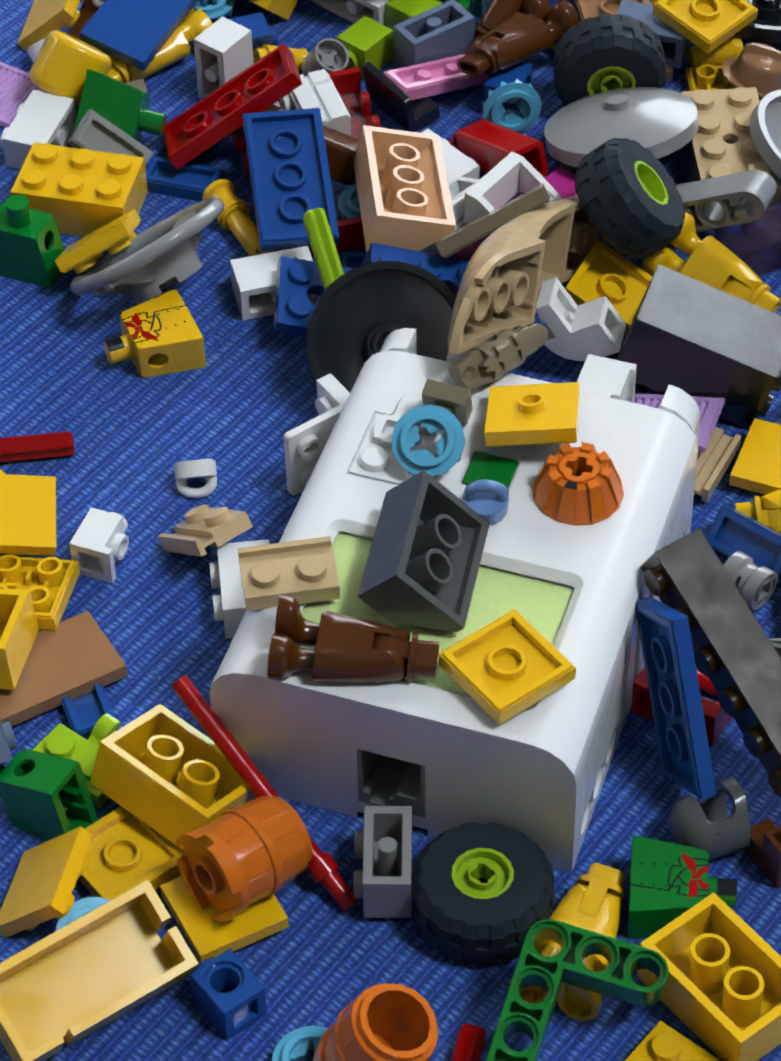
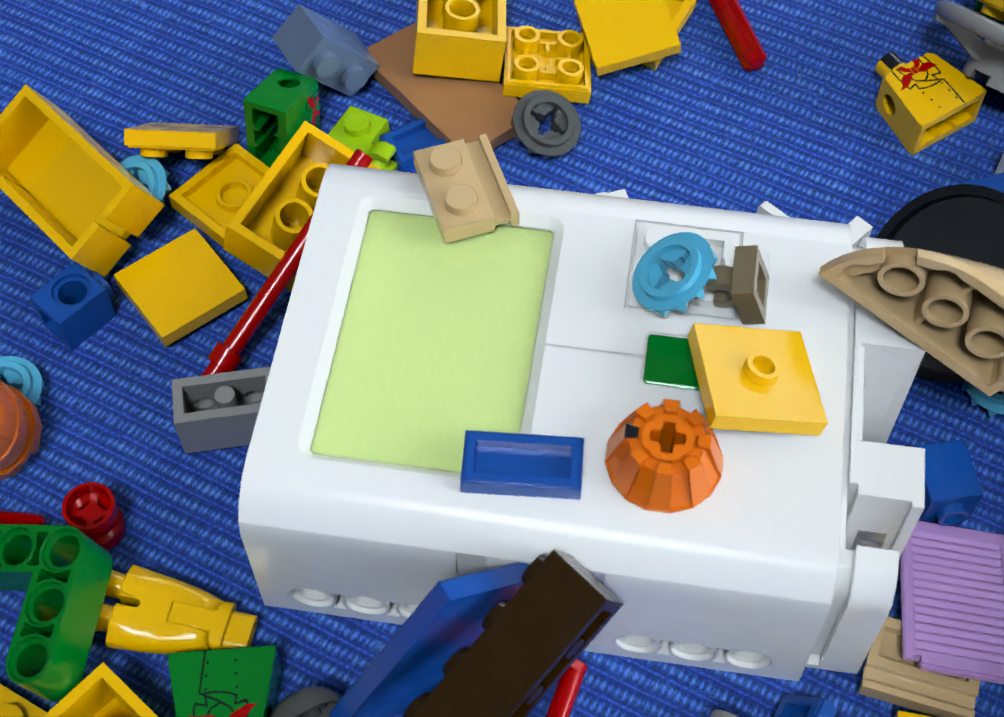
camera: 80 degrees right, 10 degrees up
(95, 598) = (564, 126): none -> dark grey gear
(100, 544) = (619, 105): white brick -> none
(196, 469) = (742, 164): white tile -> none
(205, 528) = (649, 181): tan plate -> none
(244, 855) = (195, 269): orange piece -> none
(346, 648) = (349, 244): reddish brown piece -> none
(424, 556) = (495, 304): dark grey slope -> none
(474, 980) = (87, 506): none -> red wheel
(481, 892) = (183, 506): black wheel -> none
(487, 499) = (609, 355): medium blue tile -> none
(497, 355) = (857, 332): dark tan hinge -> none
(506, 666) = (343, 409): yellow plate -> none
(572, 569) = (522, 465): none -> blue tile

